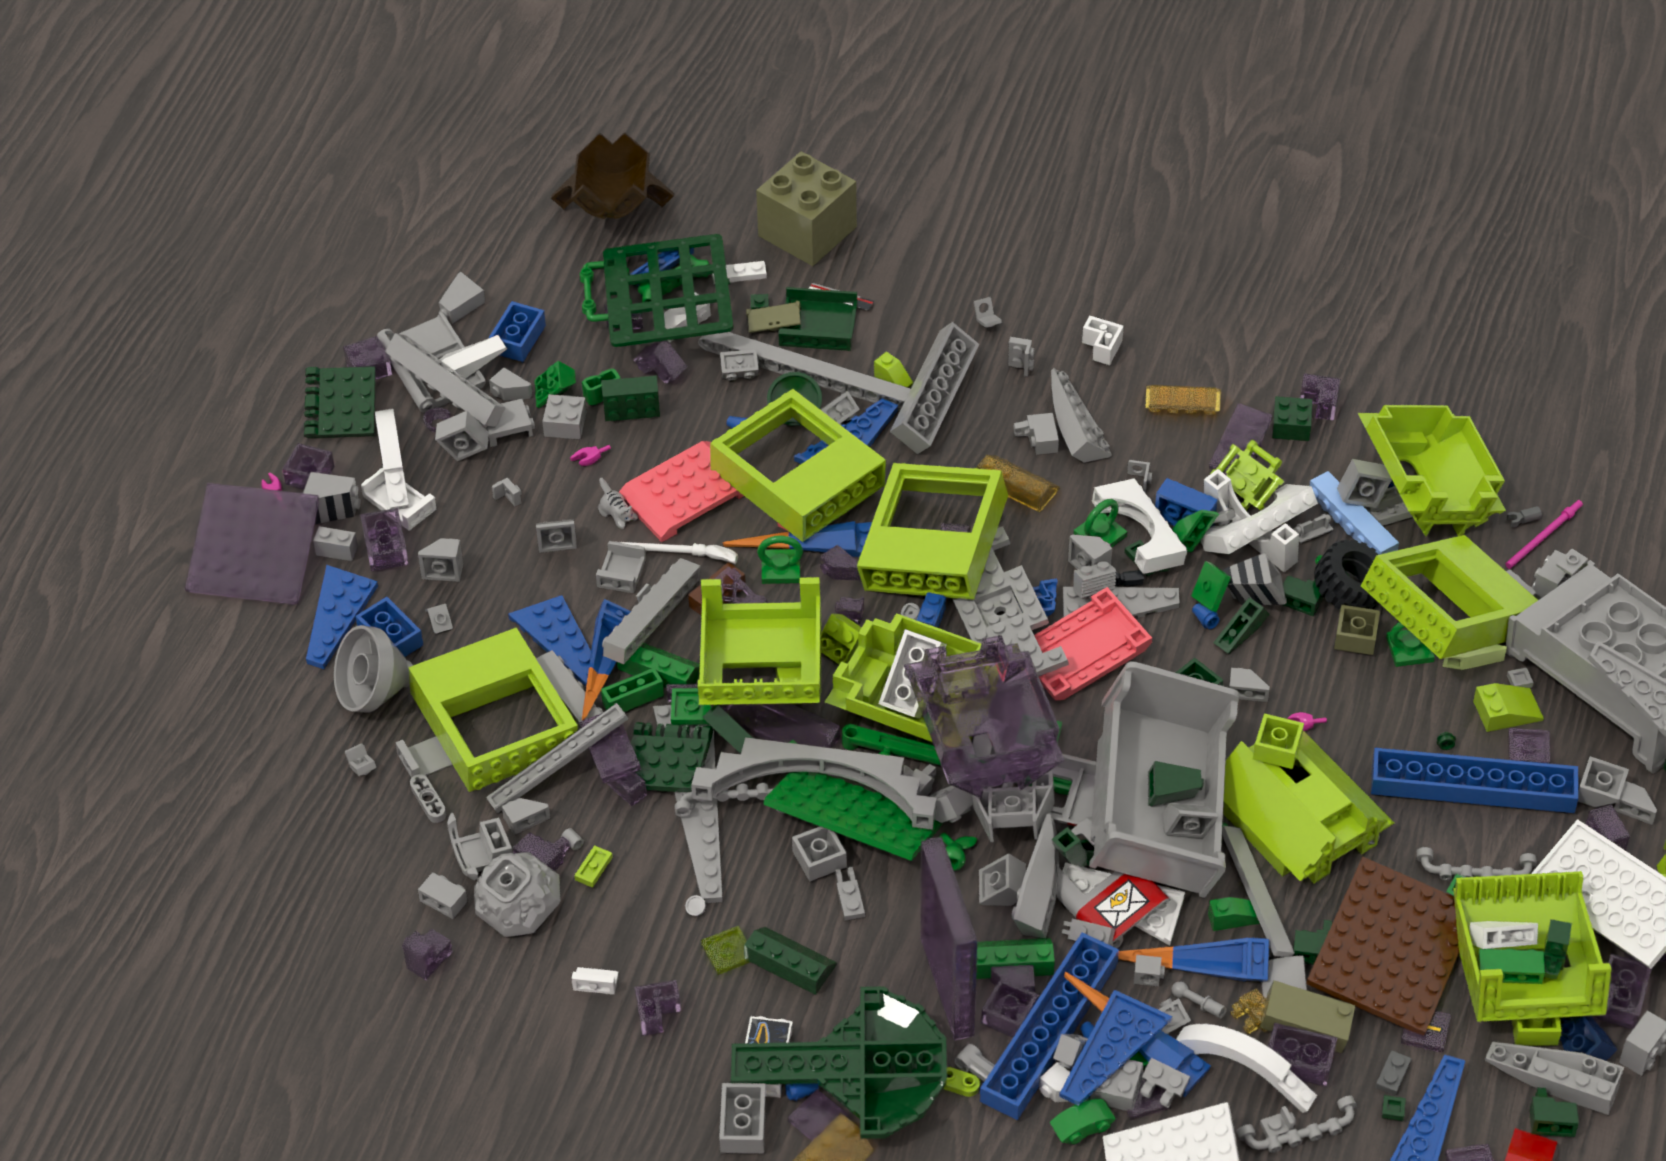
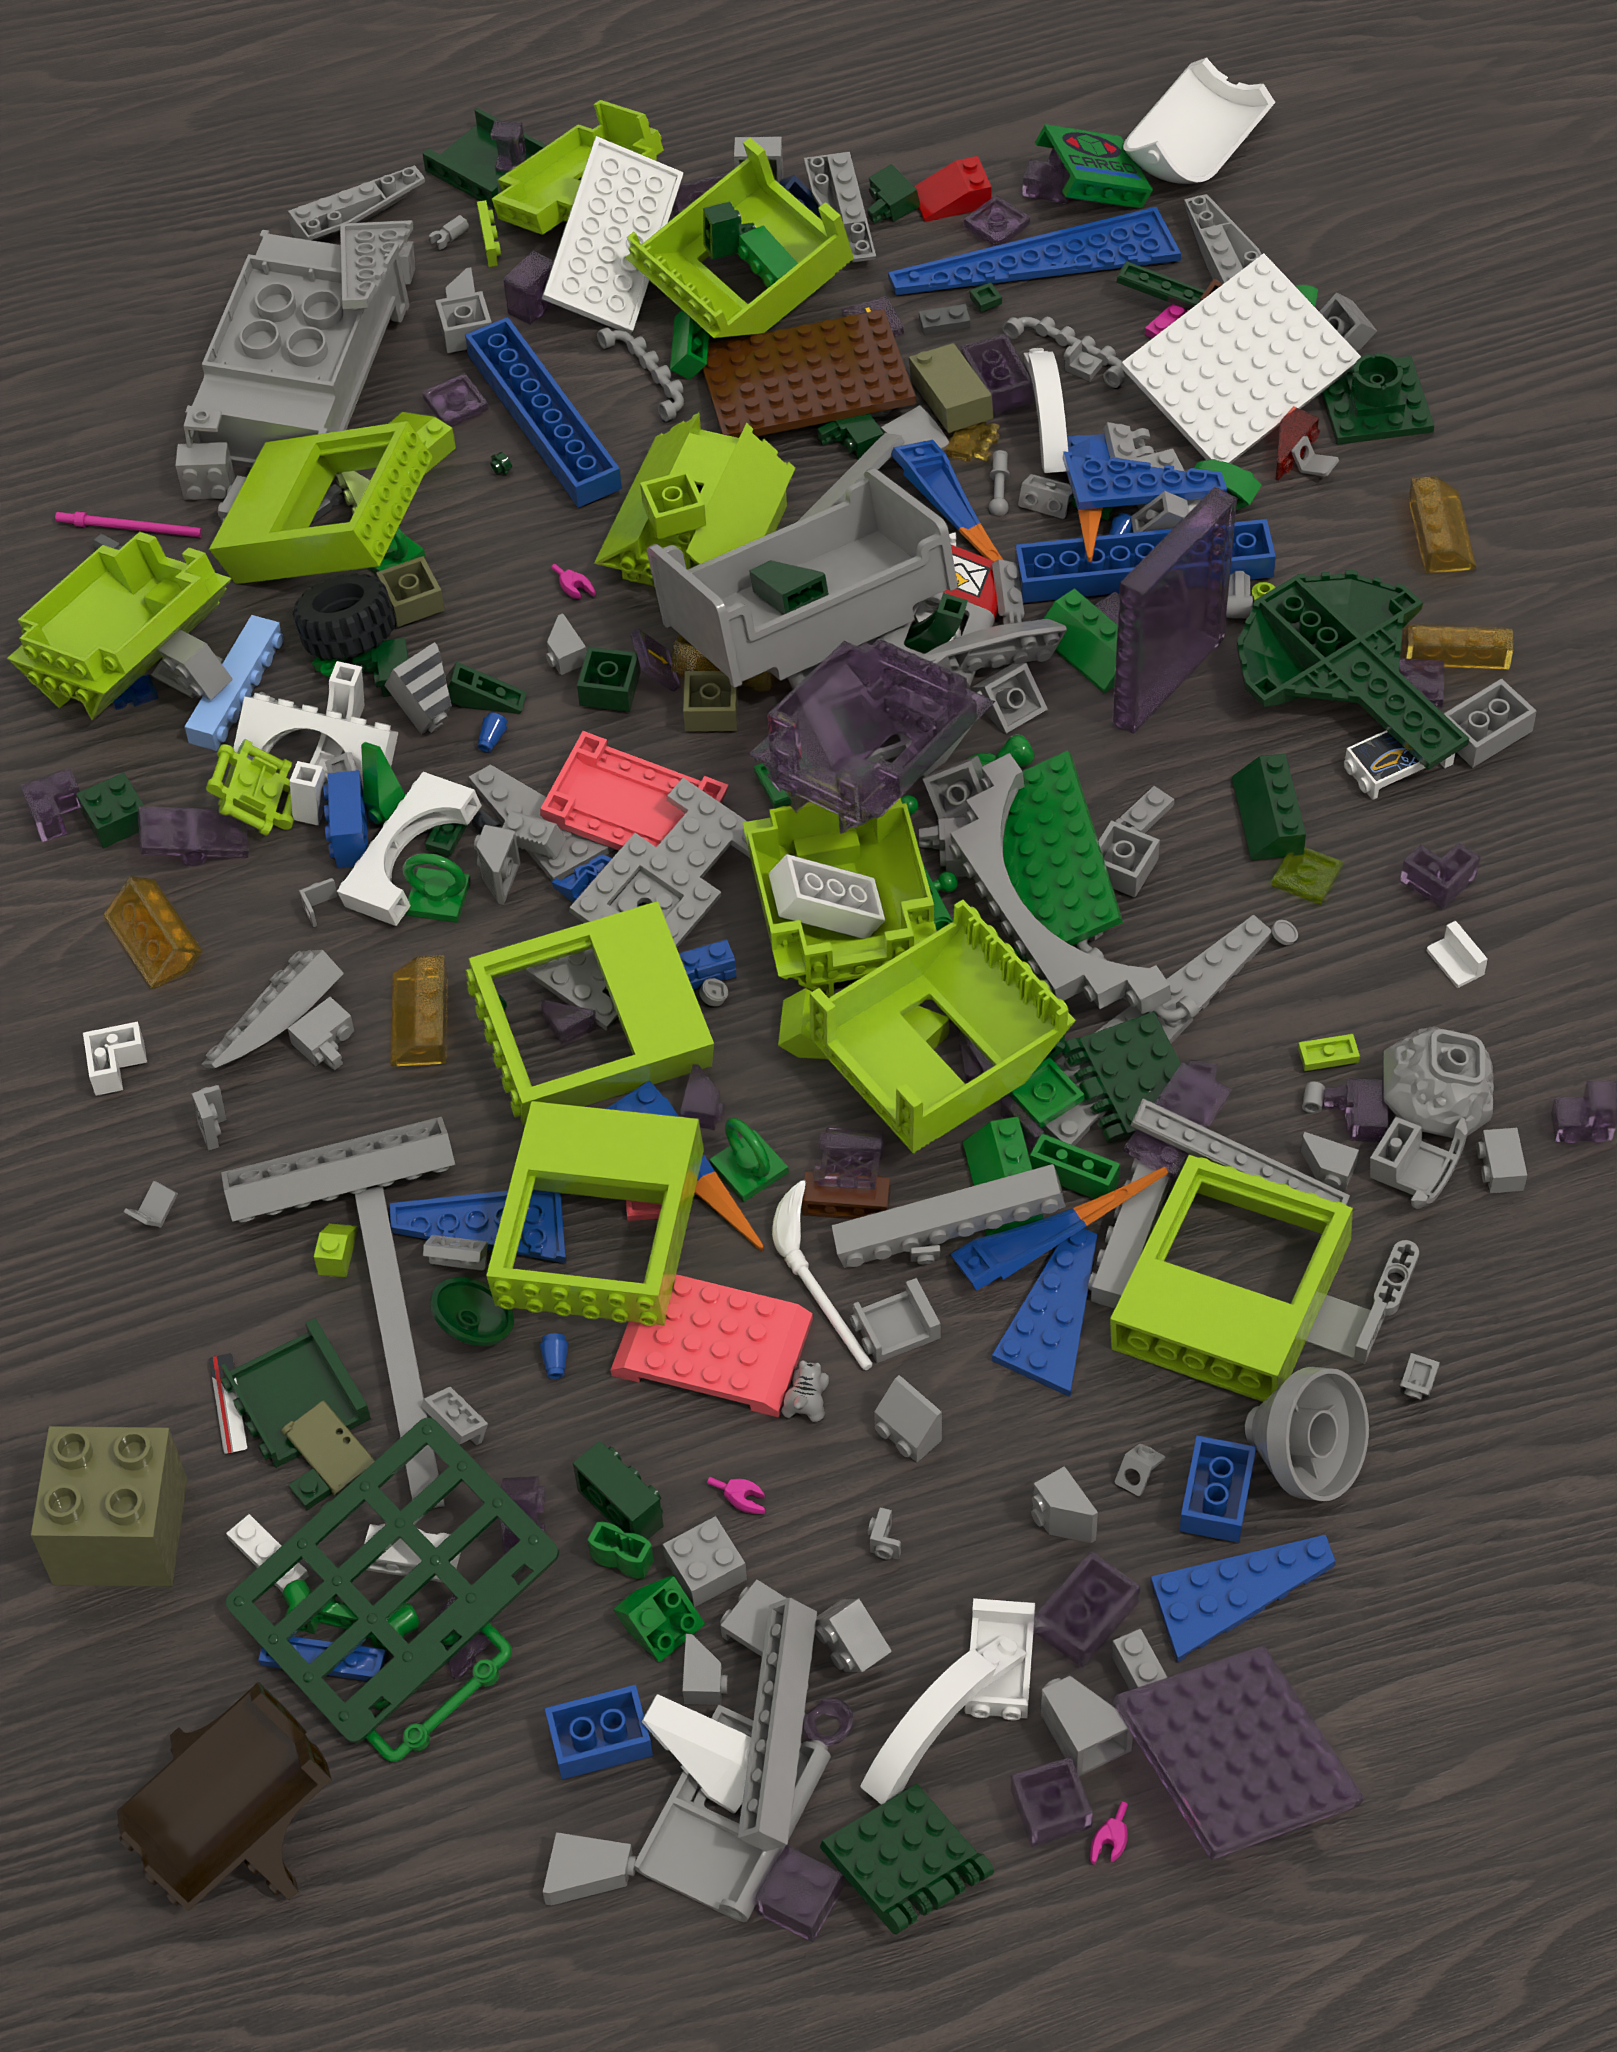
camera: 125 degrees left, 5 degrees up
(851, 608) = (759, 1047): clear purple brick -> none
(1148, 970) = (1005, 532): light grey brick -> none
(1188, 820) = (819, 547): light grey slope -> none
(1210, 586) = (456, 730): green plate -> none
(1503, 934) = (743, 277): white slope -> none

